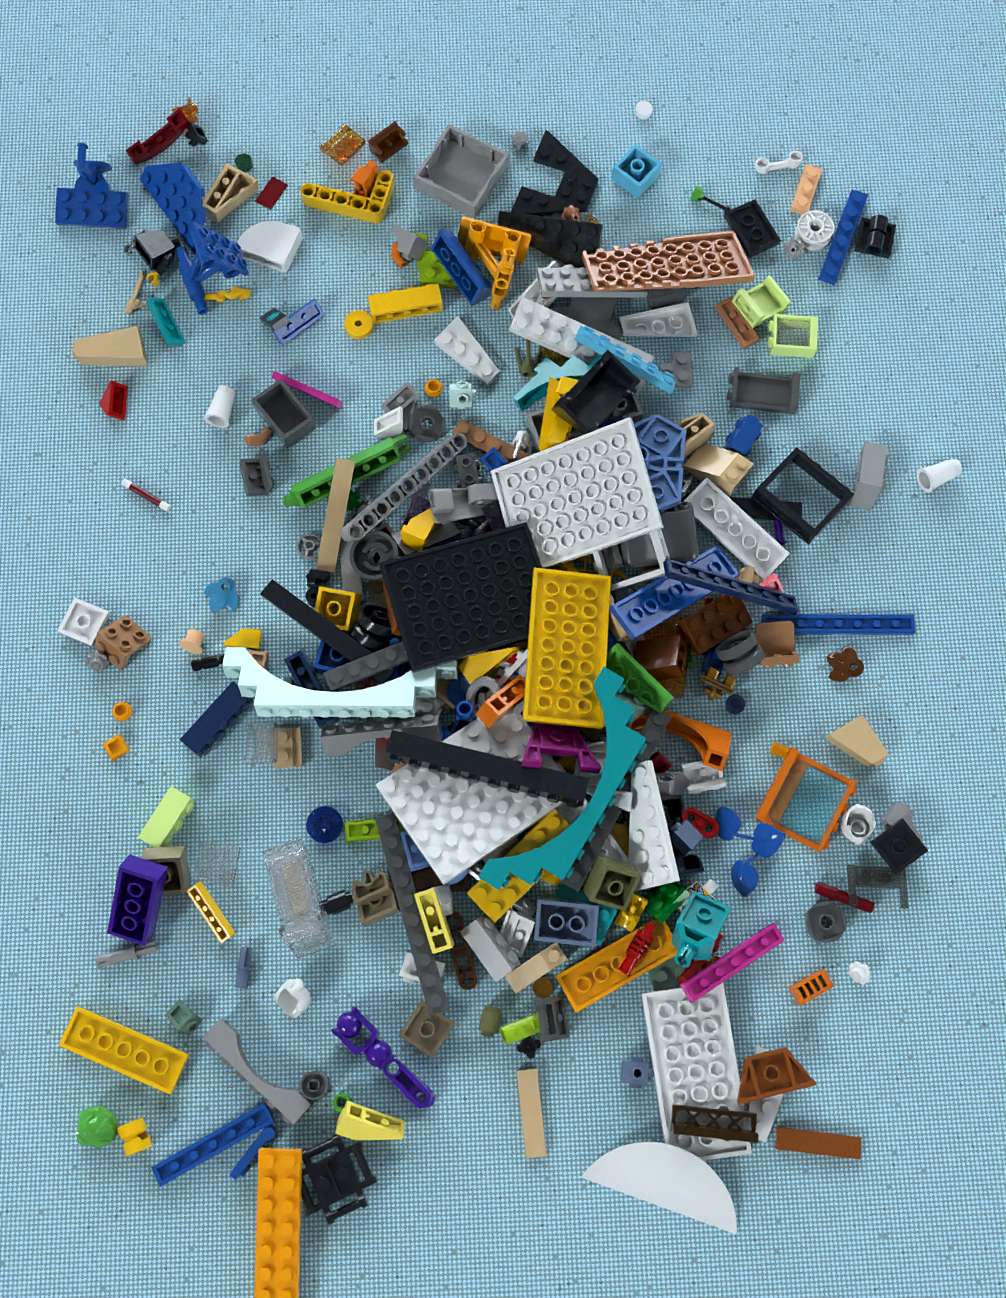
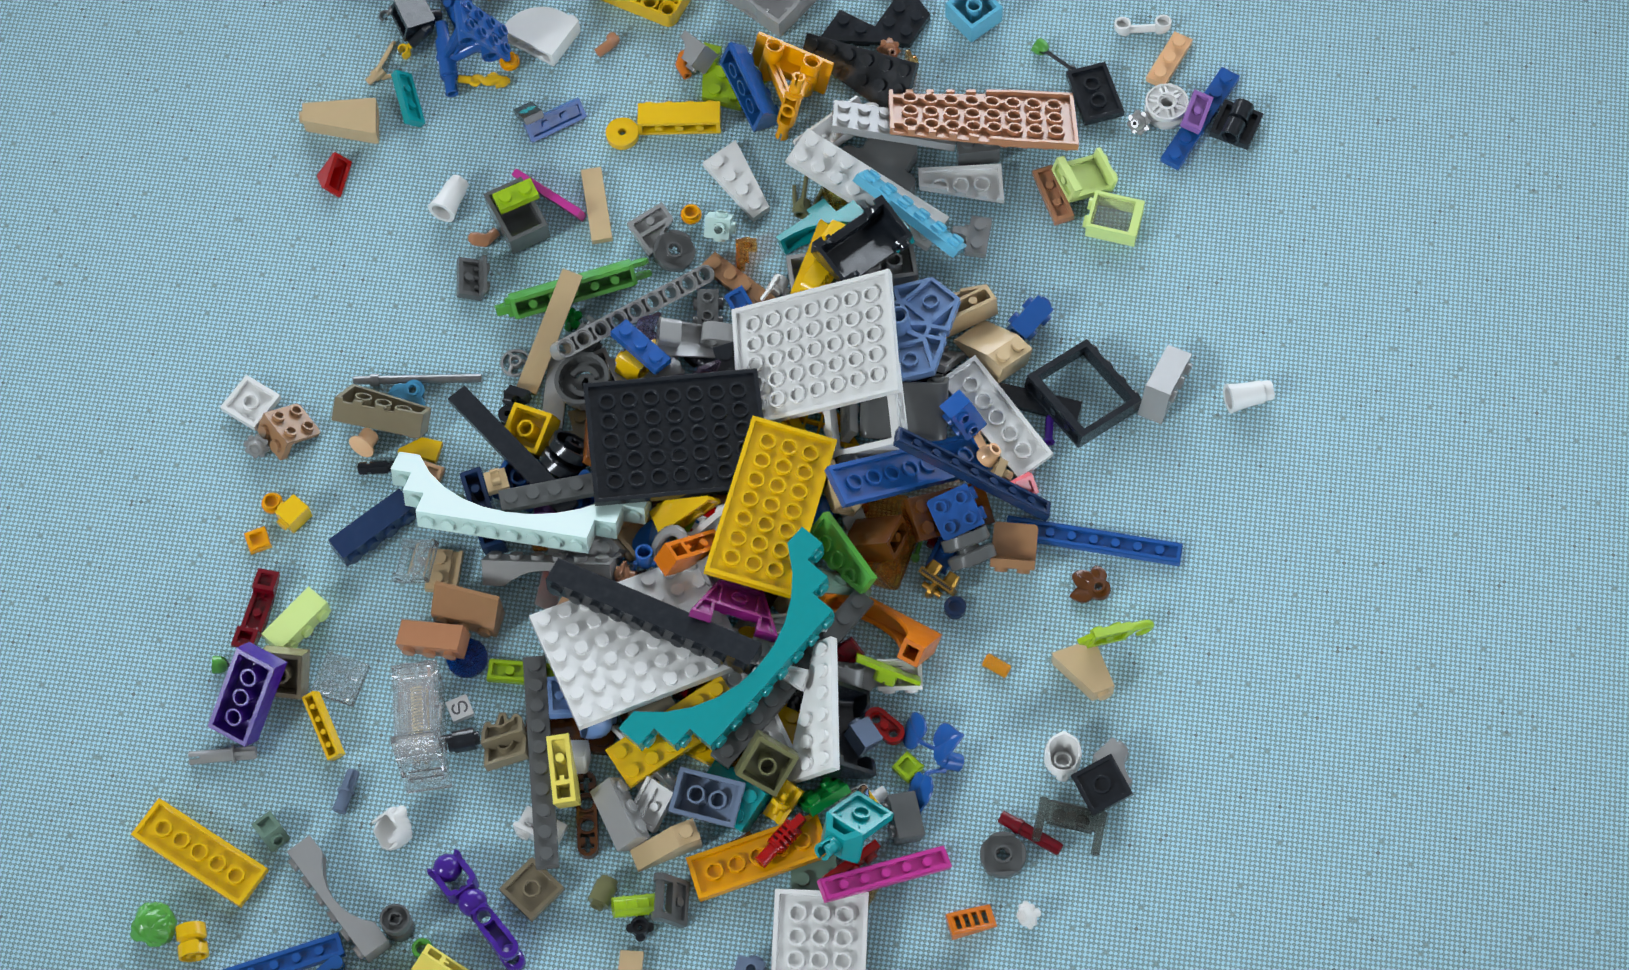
camera: 15 degrees right, 10 degrees down
(106, 870) = (219, 664): none -> bright green hinge
(130, 814) = (258, 609): none -> dark red slope
(142, 719) = (292, 514): none -> yellow brick
(148, 496) = (347, 280): dark red bar -> none
(191, 582) = (375, 379): none -> flat silver bar
(201, 612) = (380, 412): none -> dark tan wedge
(248, 278) = (512, 64): none -> light orange plate
(280, 397) = (515, 196): none -> lime plate
(291, 815) = (432, 639): none -> nougat brick
(316, 783) = (467, 607): none -> medium nougat slope
(319, 662) = (496, 480): none -> tan tile
(328, 872) = (460, 709): none -> white tile
(330, 247) = (611, 42): none -> nougat arm
(350, 393) = (596, 205): none -> tan tile
(389, 424) = (632, 245): white slope -> none
(420, 519) = (640, 347): none -> blue plate
(448, 727) = (623, 572): none -> nougat plant
(485, 413) = (743, 247): none -> clear orange bracket
(542, 988) = (670, 867): pearl gold piece -> none
(694, 777) = (886, 672): none -> lime piece
(711, 535) = (963, 415): none -> blue brick
(726, 623) = (956, 511): none -> blue bracket
(726, 856) = (907, 767): none -> lime tile
(734, 564) = (988, 453): none -> light nougat bar
(742, 909) = (907, 820): none -> dark grey brick
(764, 392) = (1066, 274): dark grey panel -> none
(806, 800) = (1009, 720): clear light blue panel -> none
(843, 231) = (1196, 111): none -> medium lavender plate
(879, 707) = (1115, 633): none -> lime plate

